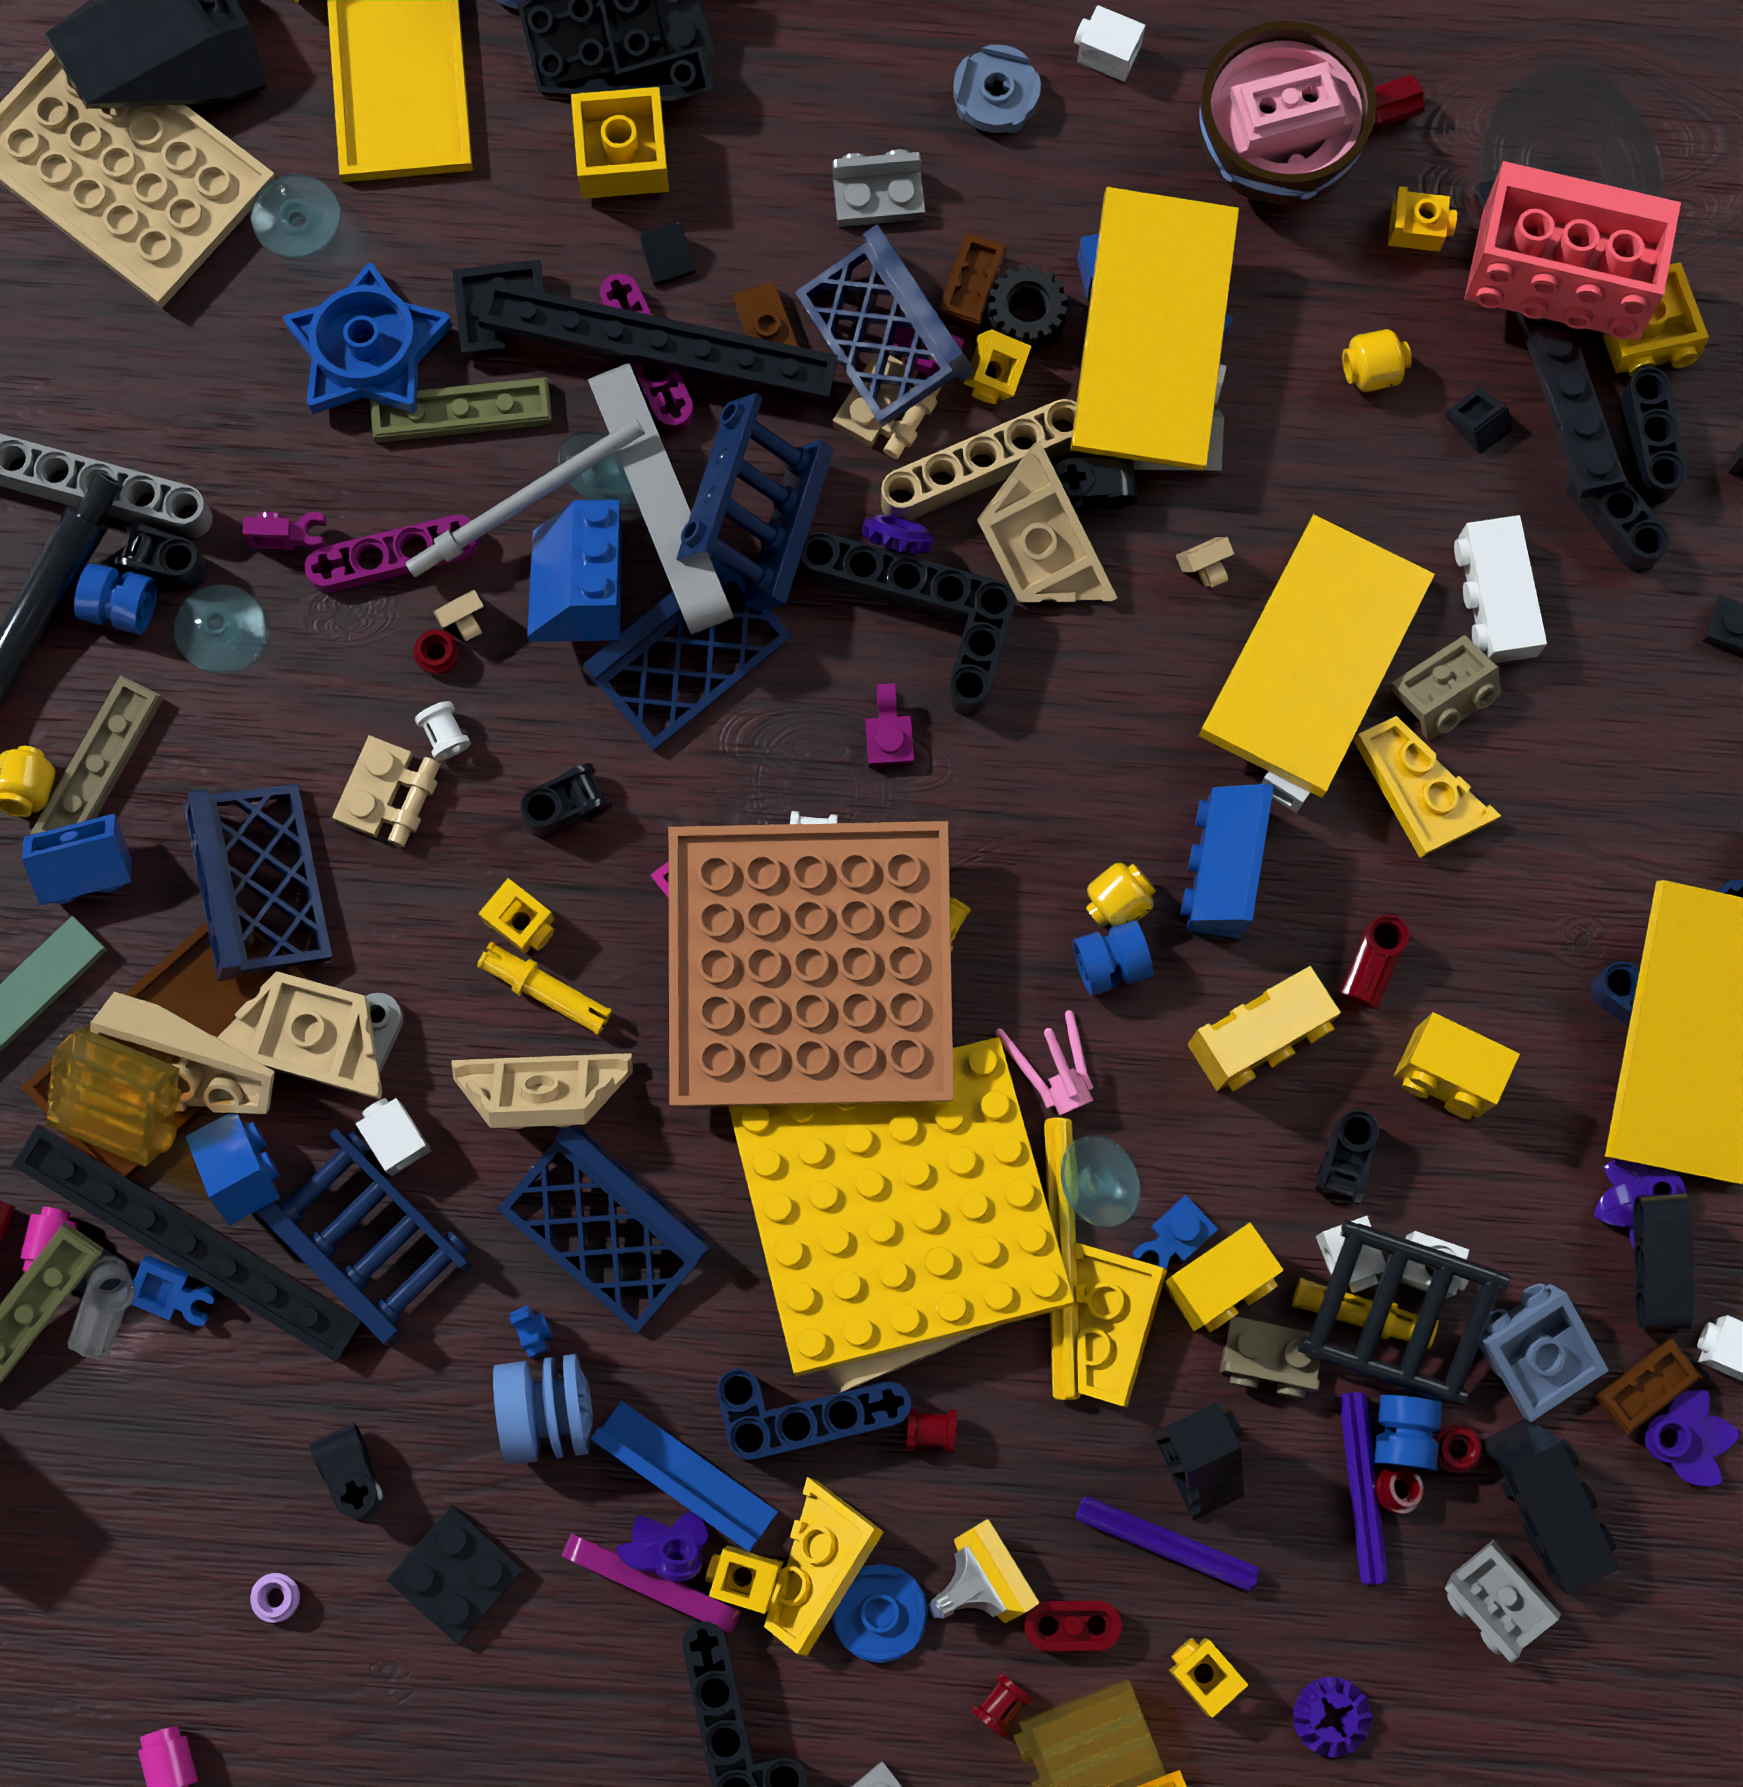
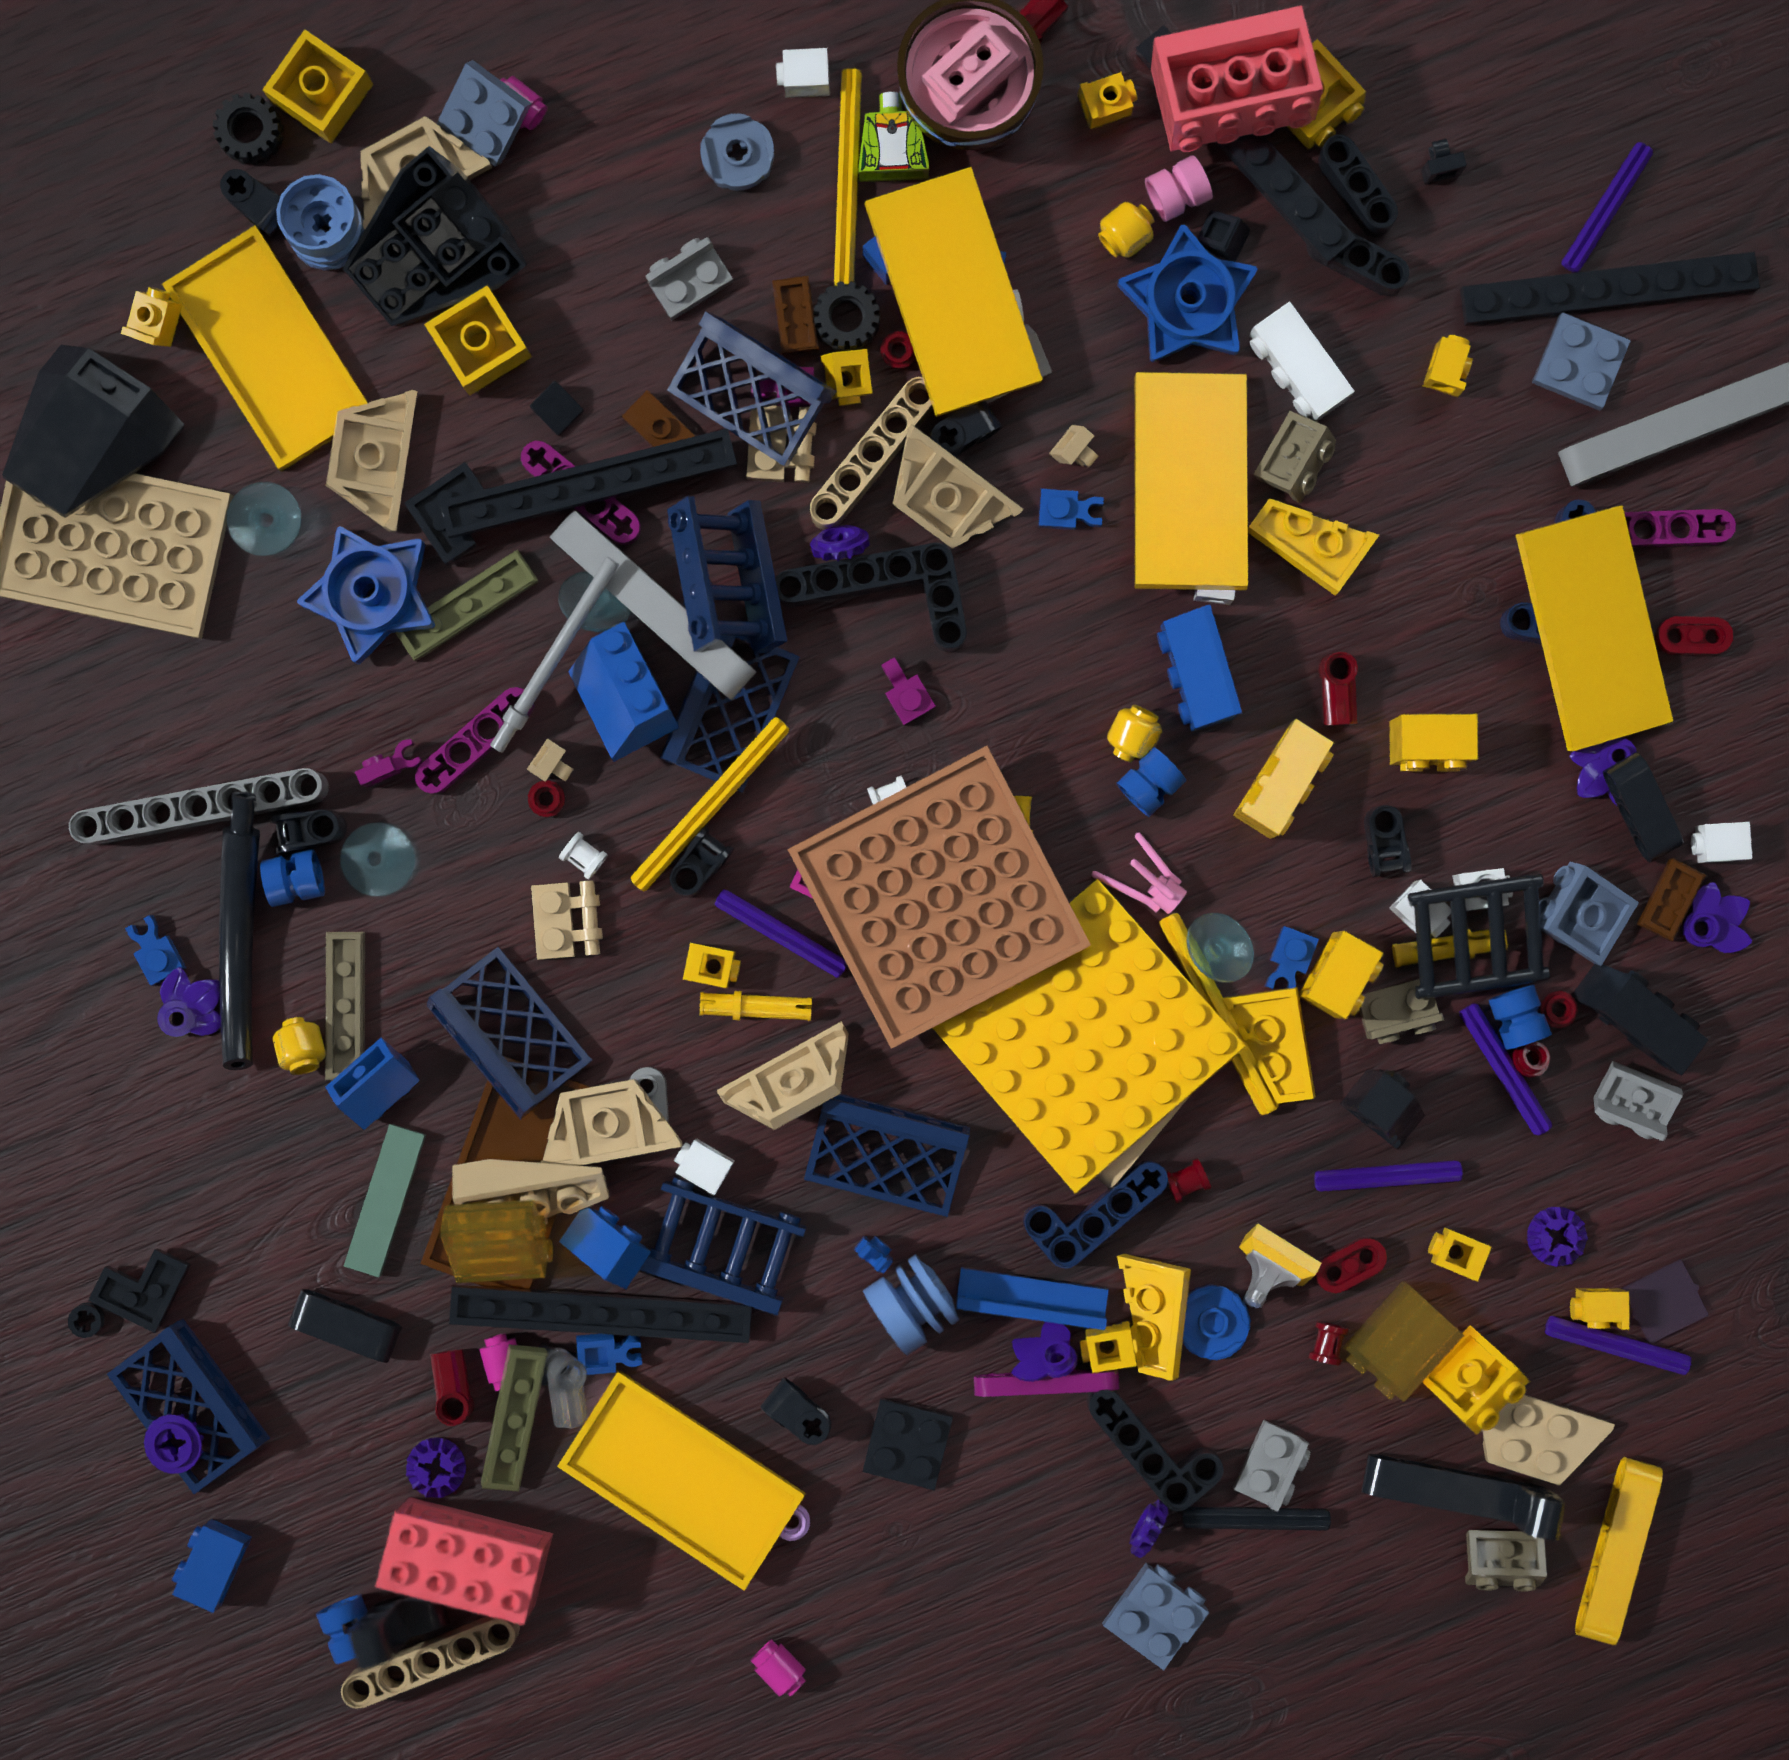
camera: 20 degrees left, 10 degrees up
(176, 1484) = (681, 1480): none -> yellow tile
(444, 207) = (372, 456): none -> tan wing
(610, 742) = (710, 804): none -> yellow axle
(615, 923) = (781, 933): none -> dark purple axle
(1057, 359) = (889, 343): none -> dark red plate
(1102, 167) = (847, 176): none -> yellow axle
(1161, 620) = (1062, 509): none -> blue plate
(1163, 154) = (892, 144): none -> torso
(1416, 435) = (1191, 271): none -> blue plate
(1454, 344) = (1174, 190): none -> bright pink wheel
(1665, 672) = (1449, 365): none -> yellow brick

